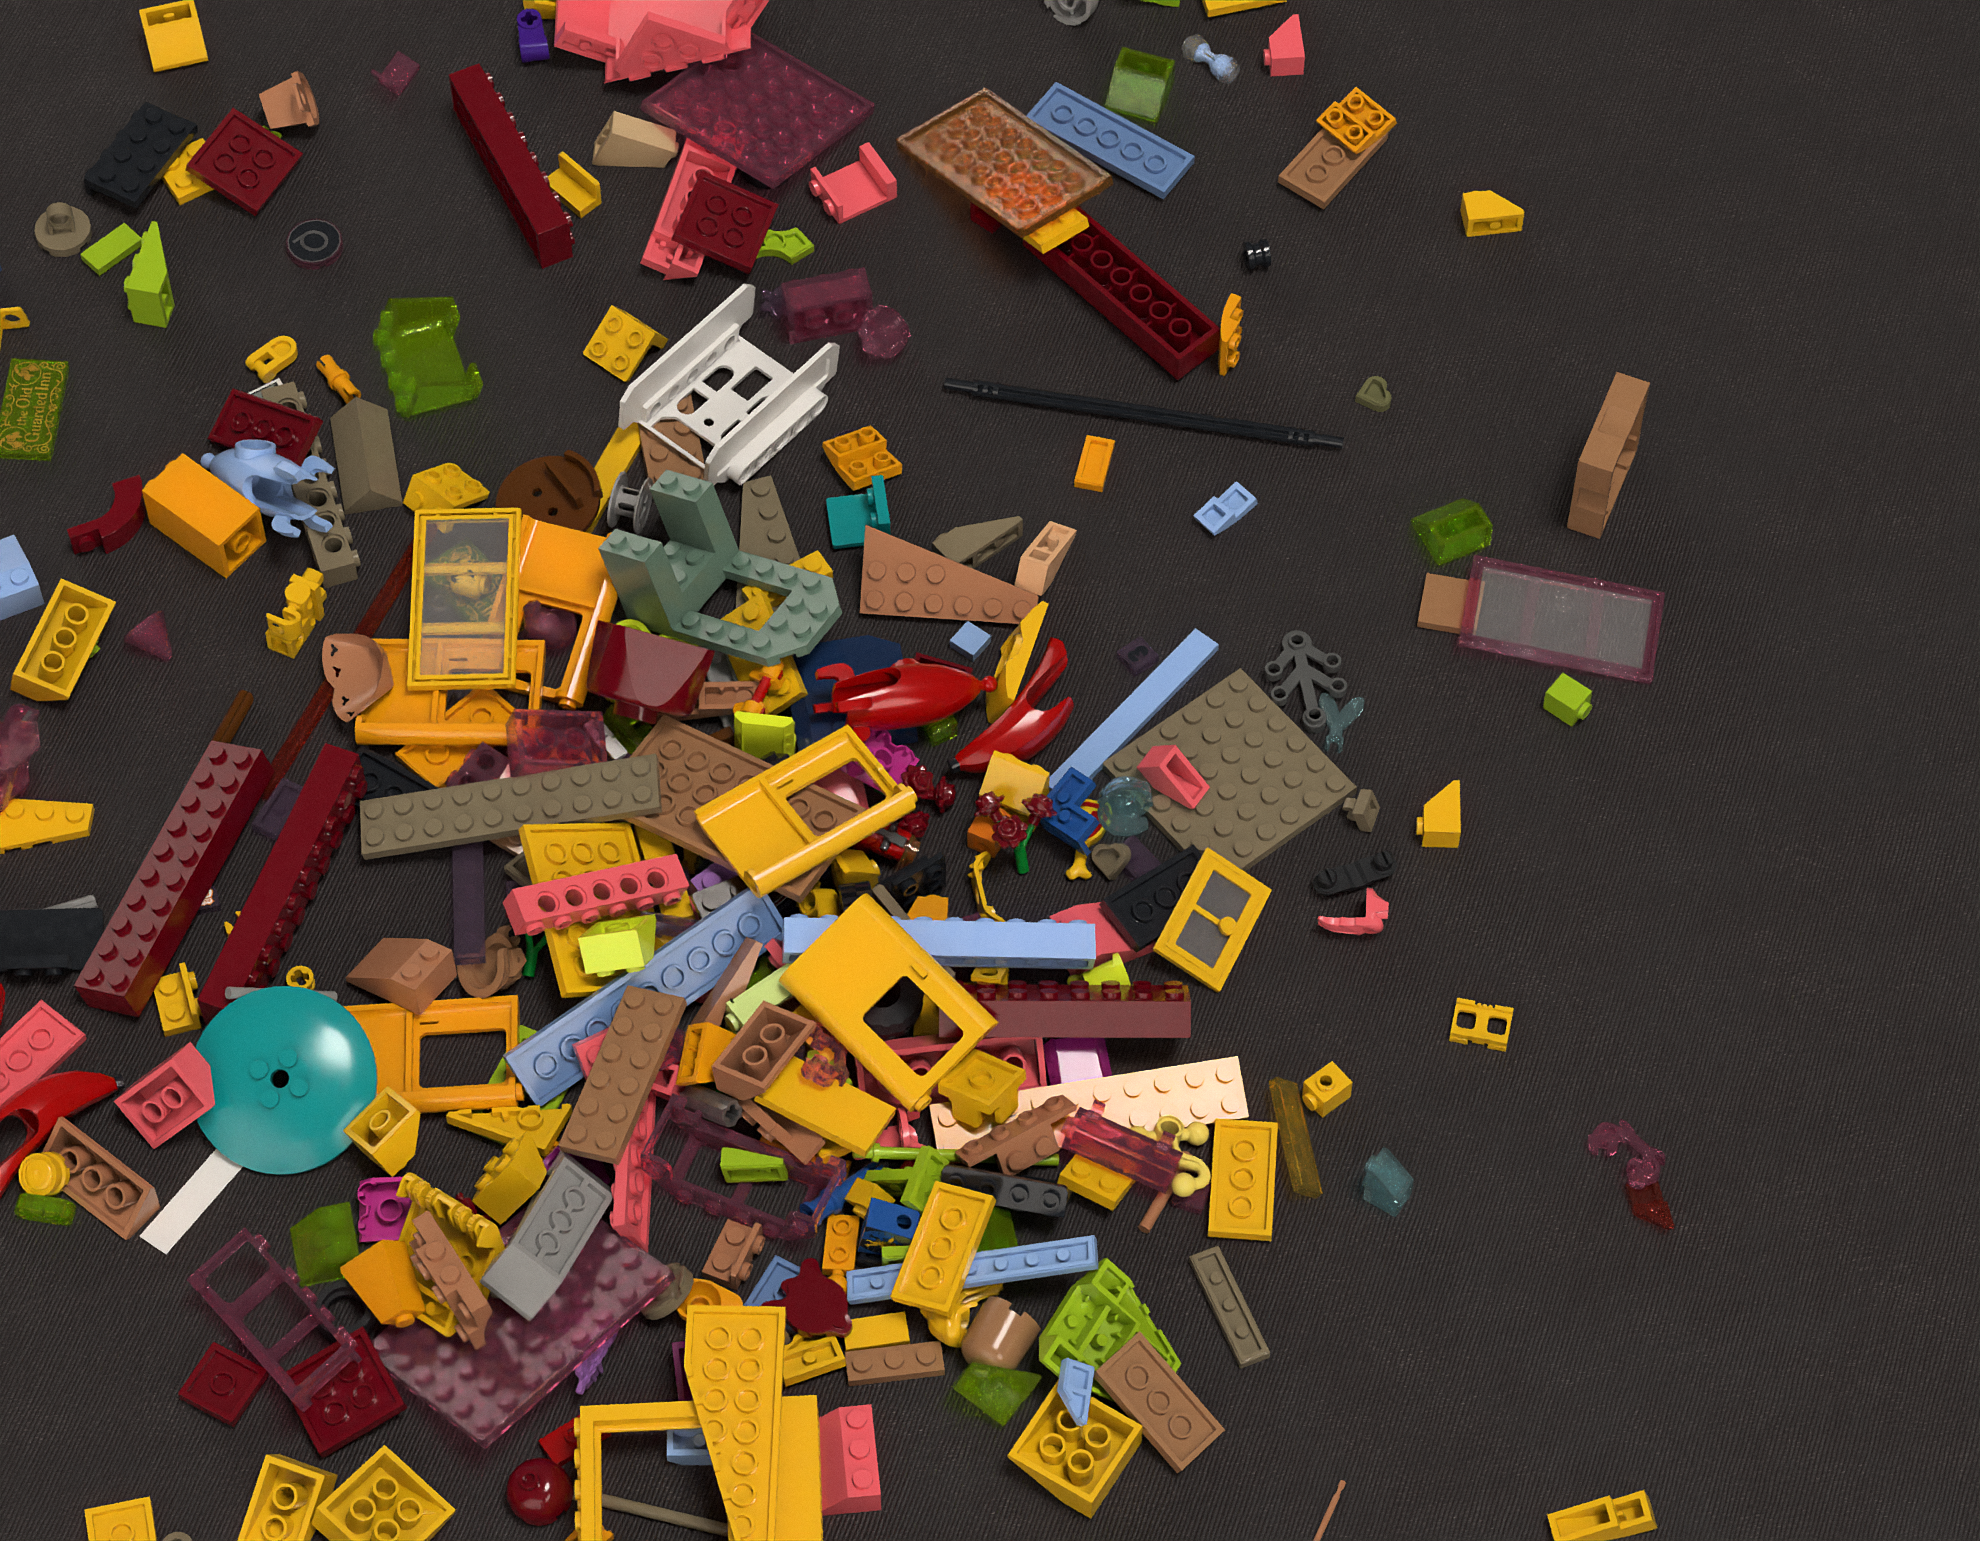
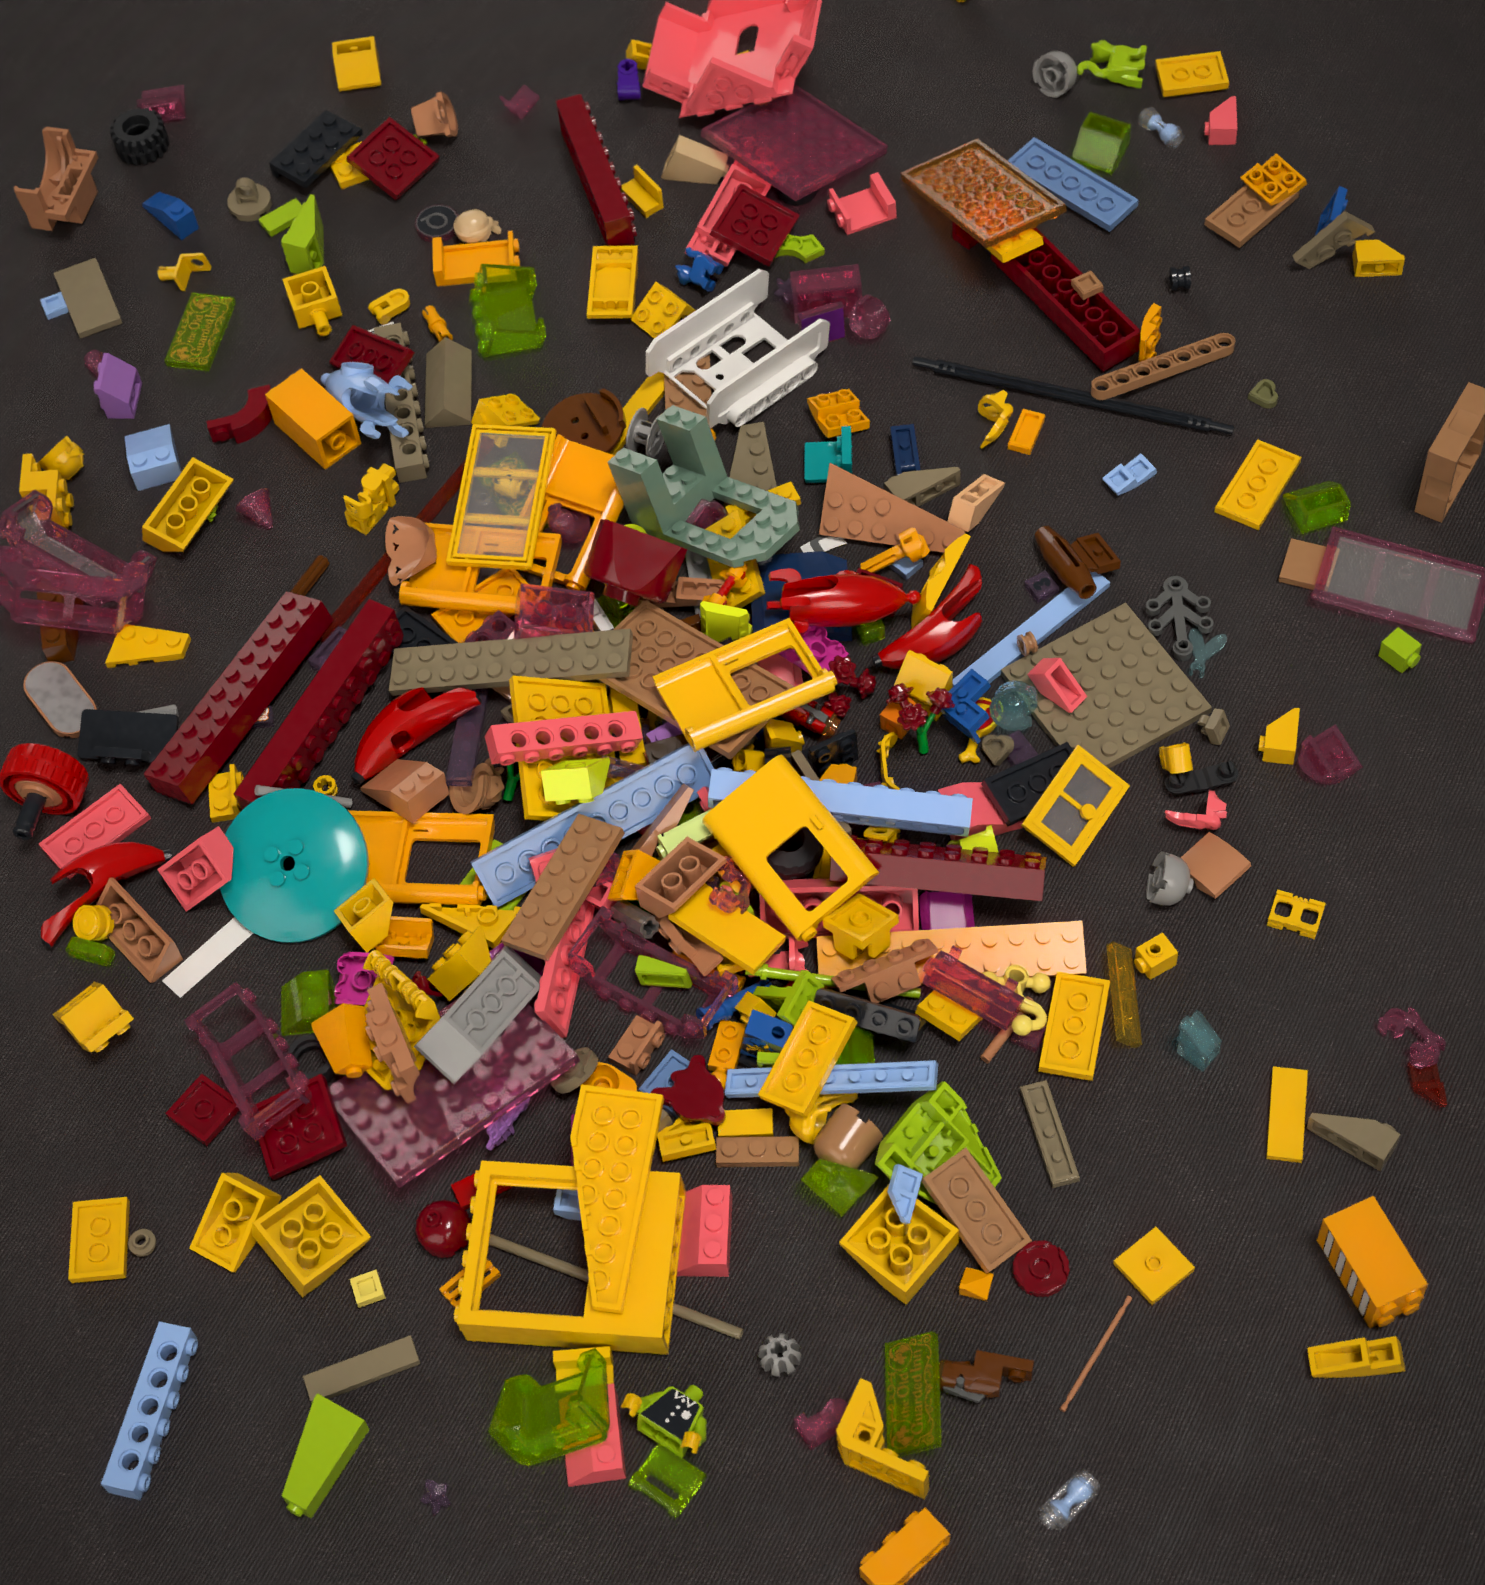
camera: 15 degrees right, 0 degrees up
(68, 1288) = (93, 1017): none -> yellow bracket
(174, 357) = (313, 299): none -> yellow brick
(364, 292) = (460, 262): none -> light orange panel
(365, 246) = (475, 226): none -> tan hat
(392, 893) = (405, 725): none -> red piece
(438, 1154) = (408, 937): none -> light orange bracket
(554, 307) = (612, 282): none -> yellow slope
(665, 283) = (702, 268): none -> blue animal
(718, 598) = (706, 513): none -> clear pink bracket
(839, 332) = (832, 313): none -> dark purple tile
(864, 625) = (823, 544): none -> white sticker
(950, 497) = (904, 448): none -> dark blue hinge
(976, 619) = (911, 545): none -> light orange piece
(1055, 431) = (997, 406): none -> yellow hair
(1130, 729) = (1027, 643): none -> medium nougat bush
(1147, 274) = (1087, 285): none -> medium nougat tile
(1167, 1486) = (975, 1284): none -> light orange slope
(1177, 620) = (1076, 561): none -> reddish brown plate
(1239, 1461) = (1041, 1268): none -> dark red tile
(1243, 378) = (1156, 373): none -> medium nougat beam
(1323, 853) = (1176, 758): none -> yellow piece
(1332, 998) = (1169, 880): none -> light grey cylinder
(1366, 1443) = (1154, 1265): none -> yellow plate
(1379, 508) = (1257, 484): none -> yellow tile
(1379, 975) = (1214, 864): none -> nougat slope
(1430, 166) = (1334, 208): none -> blue plate
(1441, 188) = (1337, 234): none -> dark tan wing
(1496, 1256) = (1287, 1114): none -> yellow piece
(1498, 835) = (1328, 757): none -> clear pink slope
(1579, 1273) = (1360, 1137): none -> dark tan slope
(1609, 1412) = (1372, 1262): none -> light orange brick

